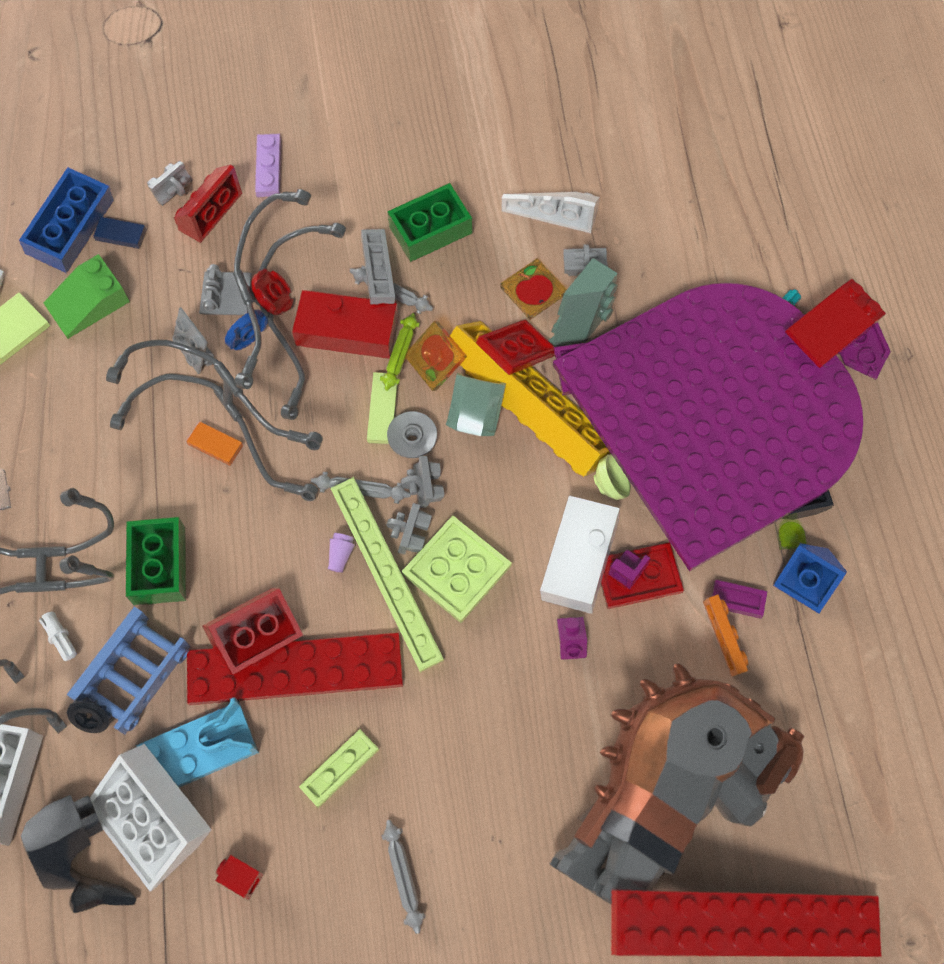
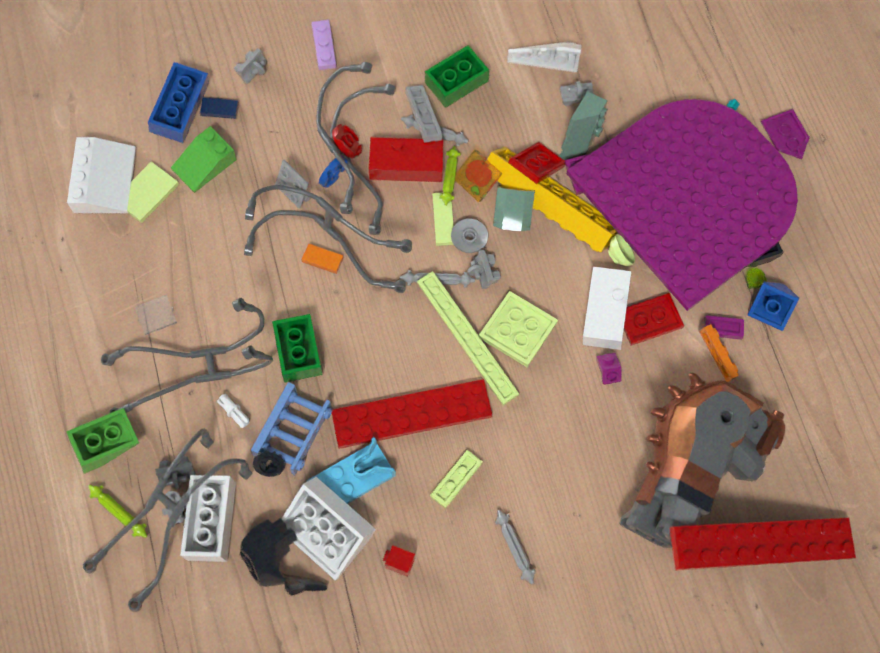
camera: 10 degrees left, 0 degrees up
(209, 203) = (285, 78): red slope -> none
(221, 293) = (308, 146): light grey hinge -> none
(252, 630) = (378, 388): red slope -> none
(339, 551) = (430, 326): lavender cone -> none
(416, 519) = (480, 312): light grey hips -> none
(533, 289) = (541, 118): tile -> none
(628, 568) = (643, 314): magenta panel -> none
(836, 323) = (768, 120): red slope -> none

